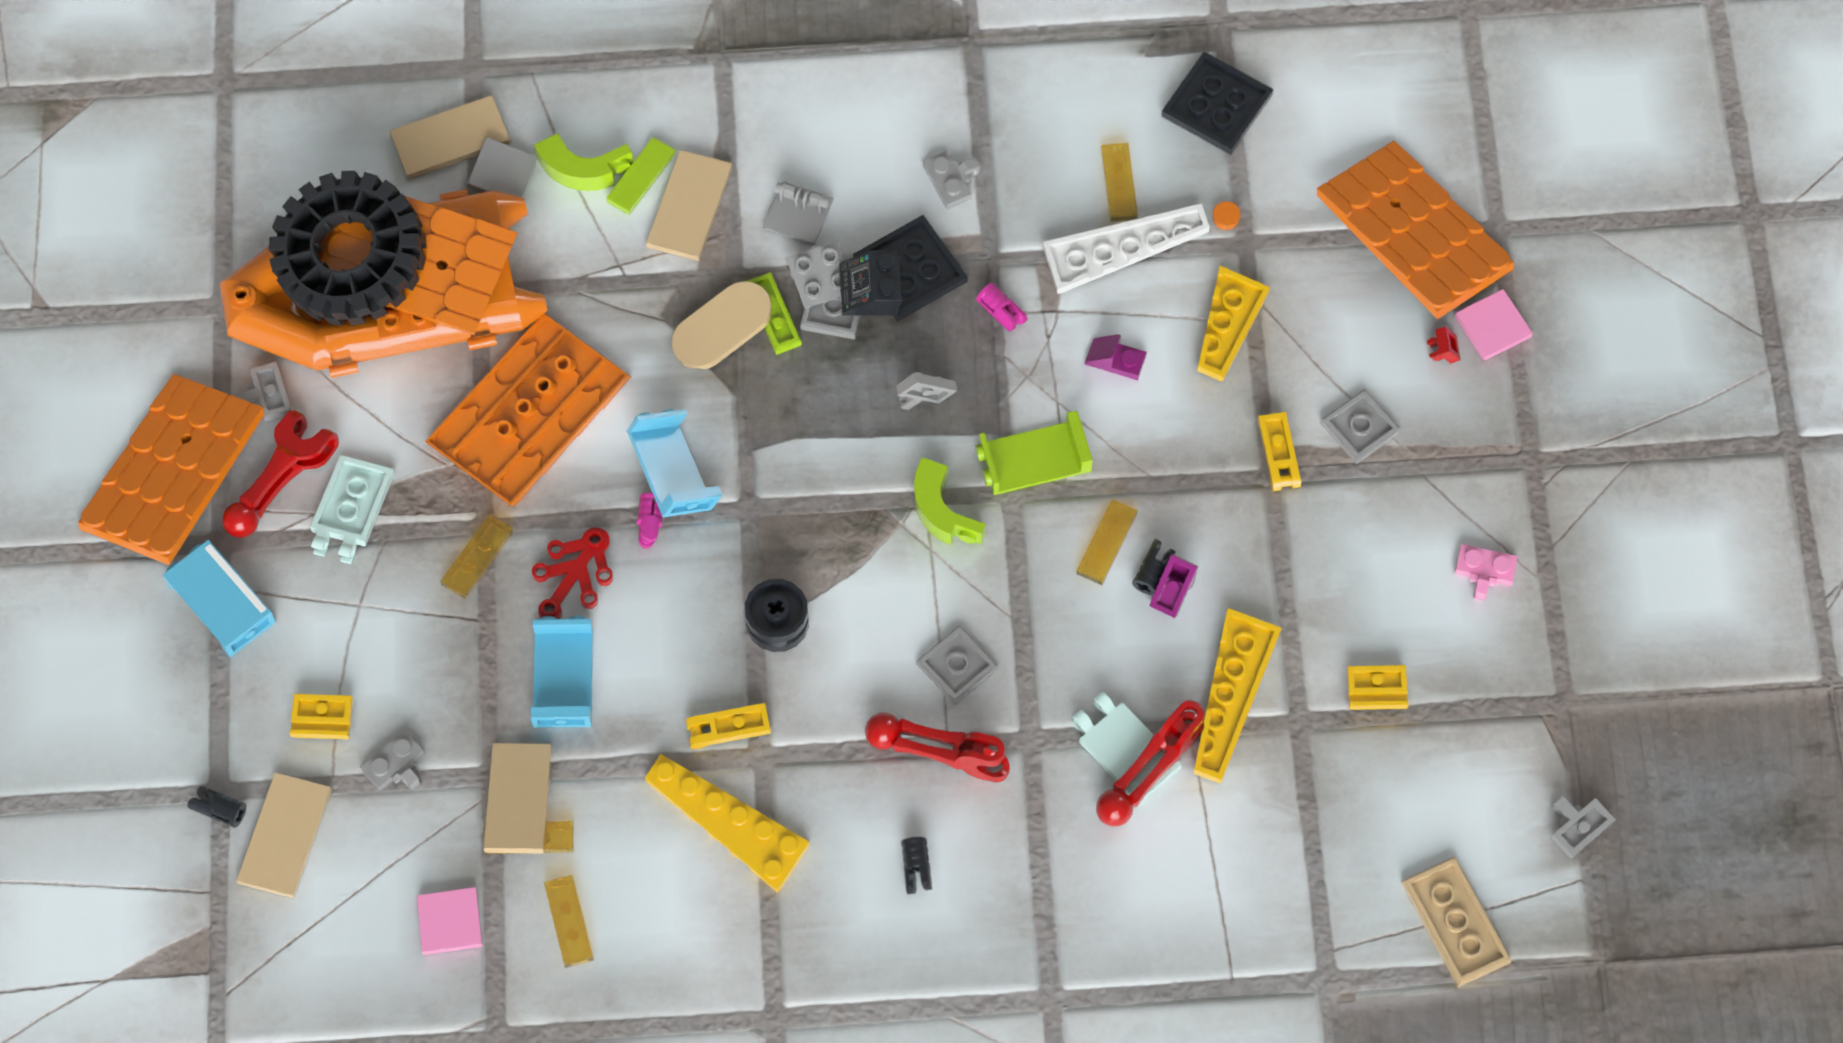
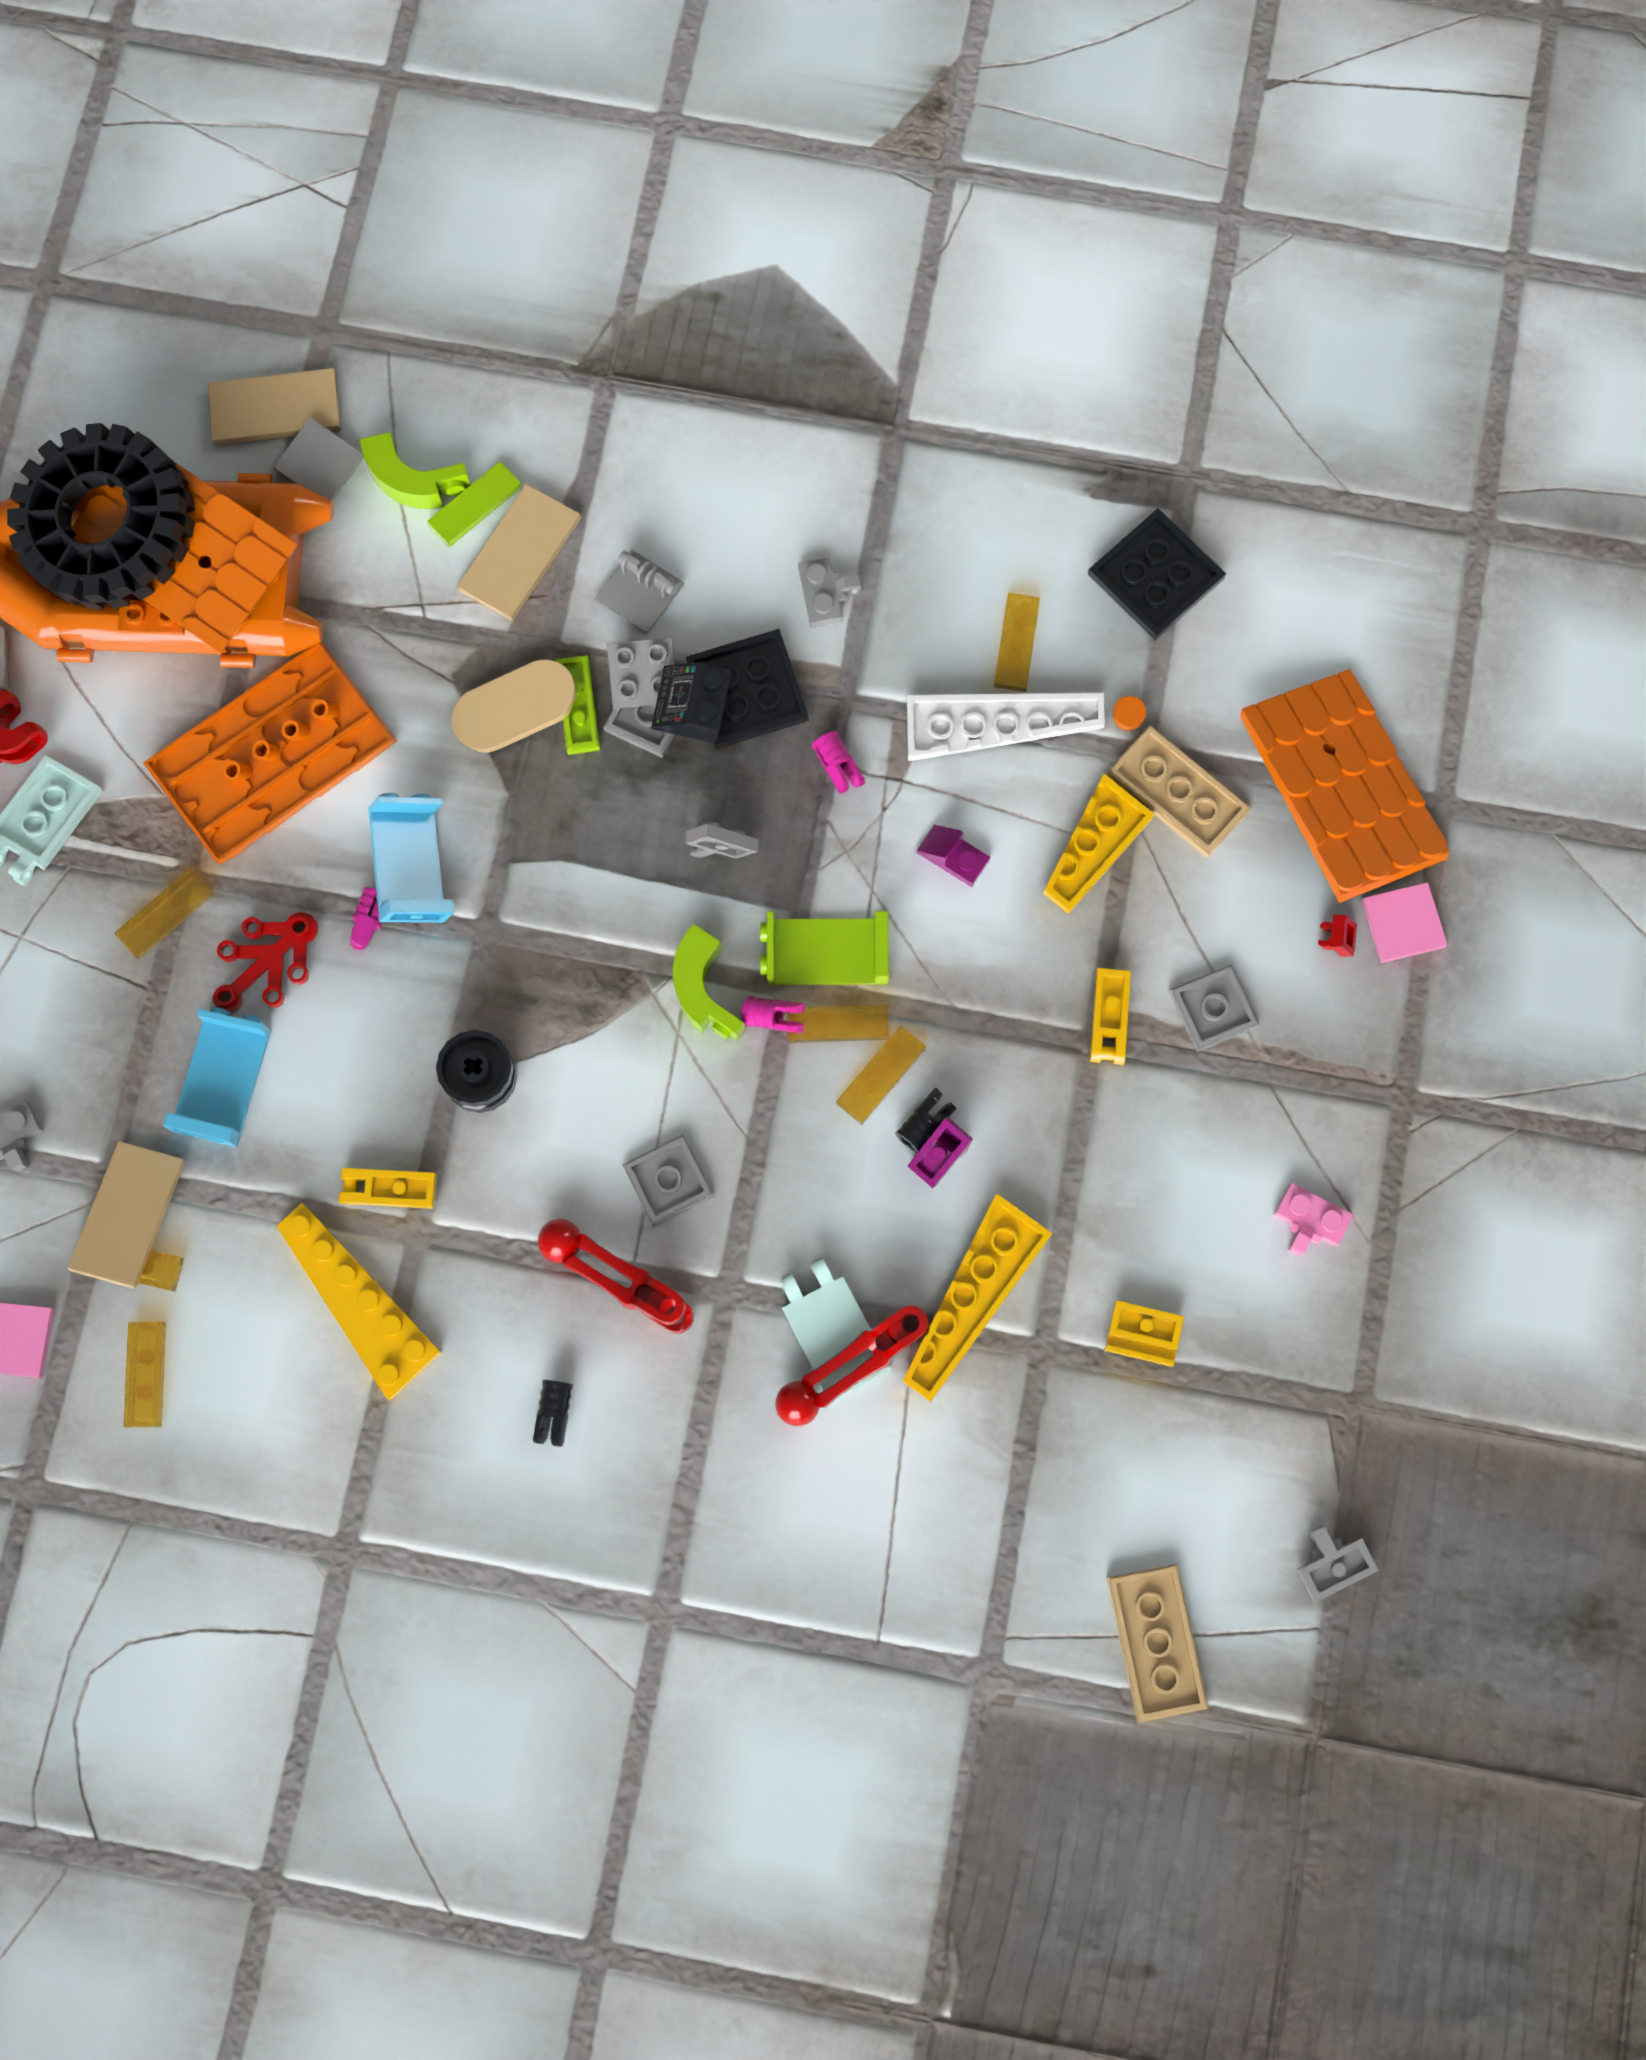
camera: 15 degrees right, 10 degrees up
(1003, 513) = (770, 1014): none -> dark pink hinge
(1059, 510) = (841, 1024): none -> clear yellow tile
(1284, 266) = (1178, 791): none -> tan tile

